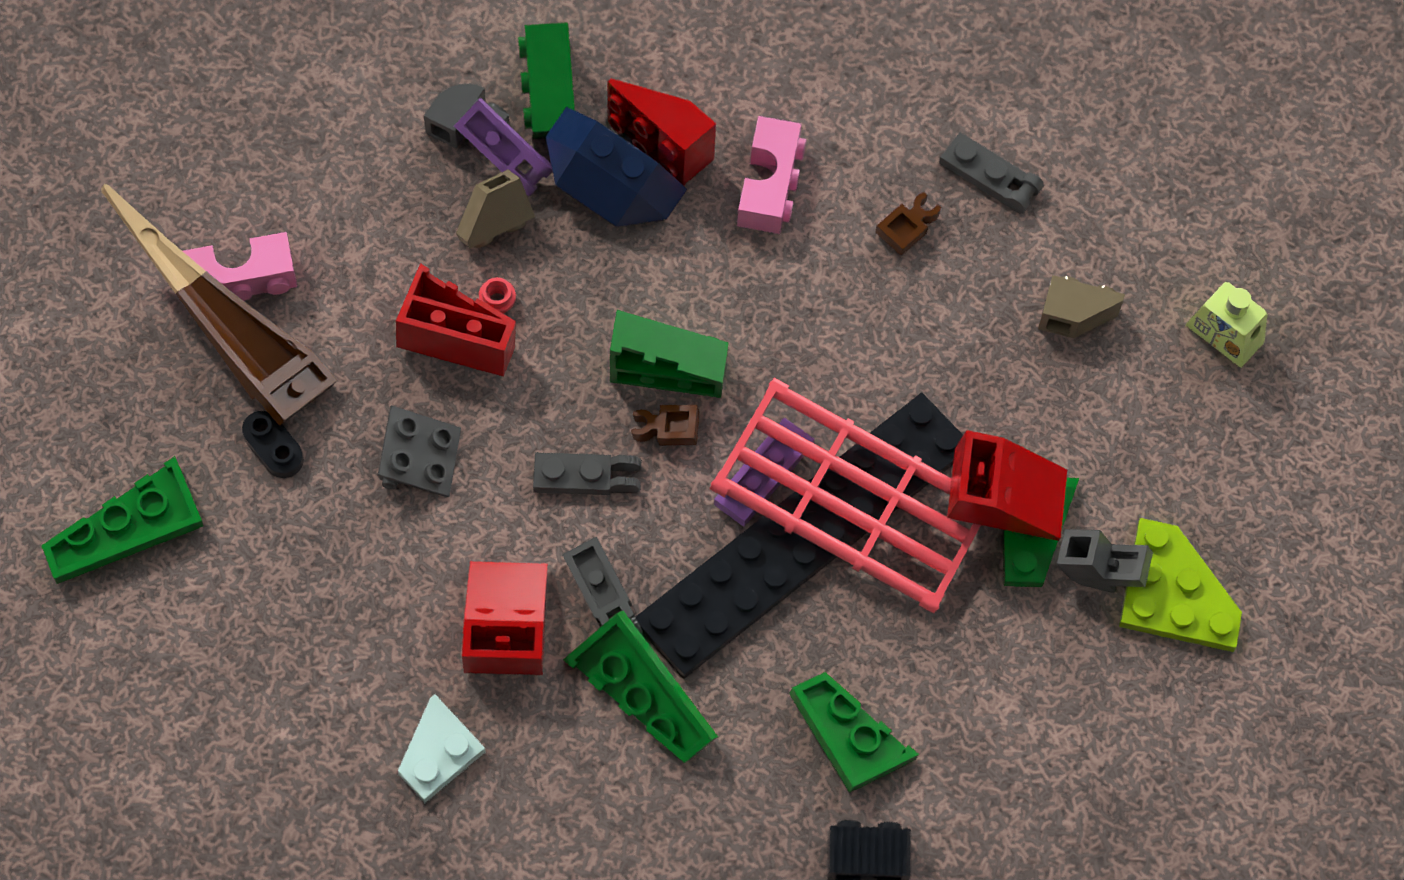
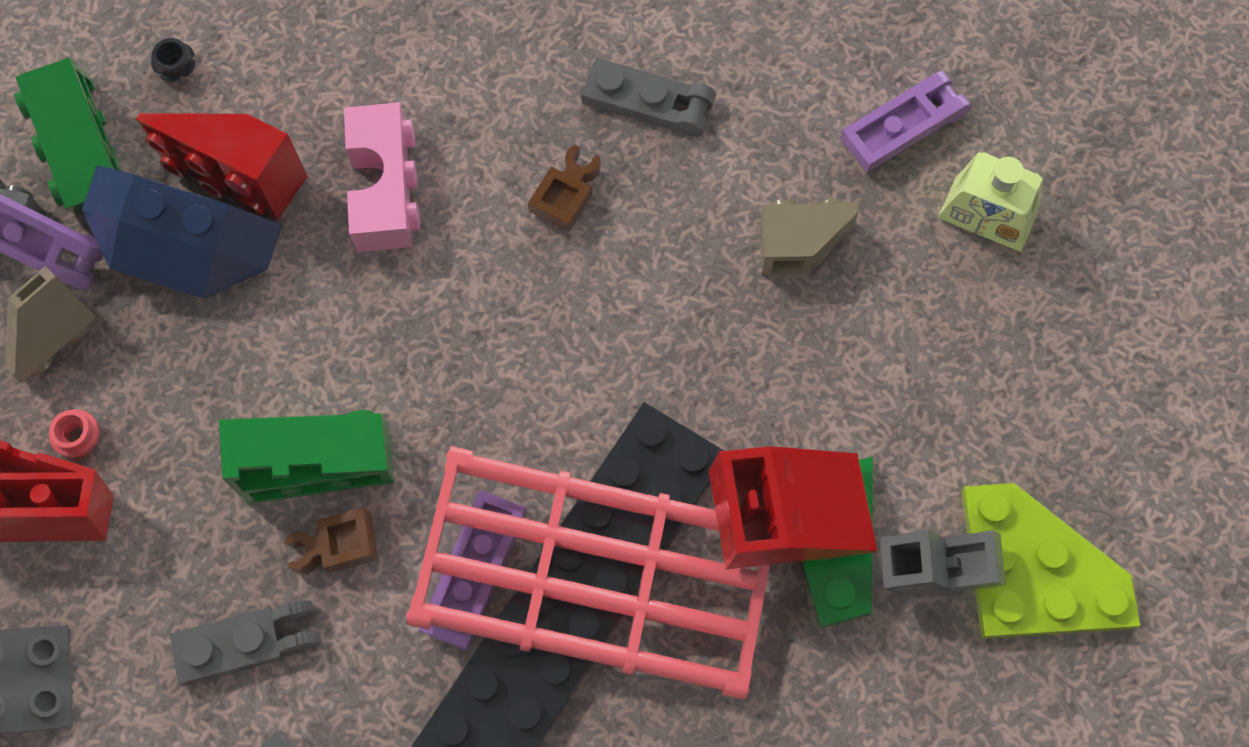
camera: 10 degrees left, 5 degrees up
(637, 35) = (168, 50): none -> black plate
(1183, 246) = (904, 121): none -> medium lavender plate

